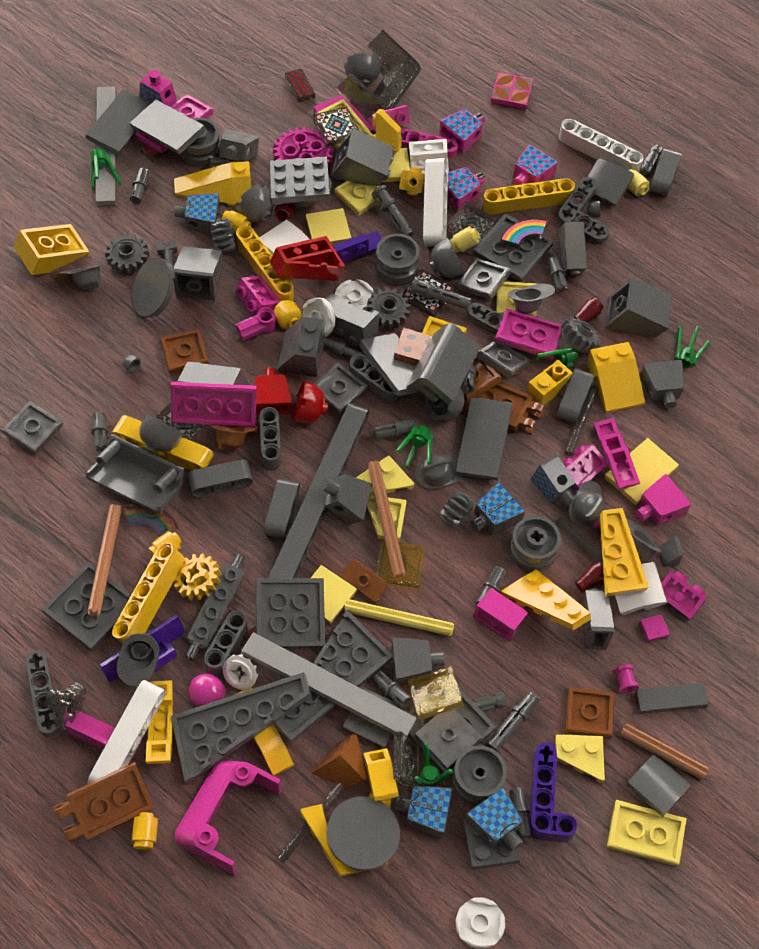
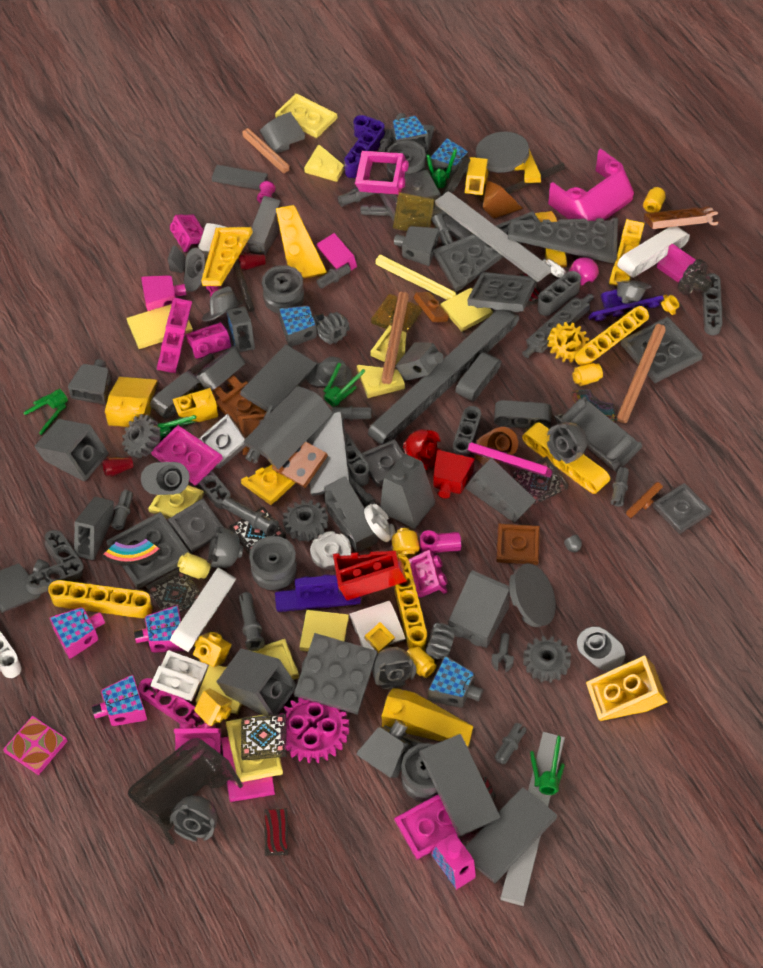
camera: 155 degrees left, 5 degrees down
(71, 421) = (645, 501): none -> dark orange plate
(92, 672) = (670, 304): none -> yellow plate
(276, 223) = (379, 637): none -> yellow plate
(480, 923) = (442, 103): white tile -> none
(496, 740) = (364, 169): none -> dark pink window
(546, 426) = (221, 368): none -> dark grey beam
(589, 712) = (304, 186): dark orange tile -> none
(654, 628) = (224, 218): dark pink tile -> none

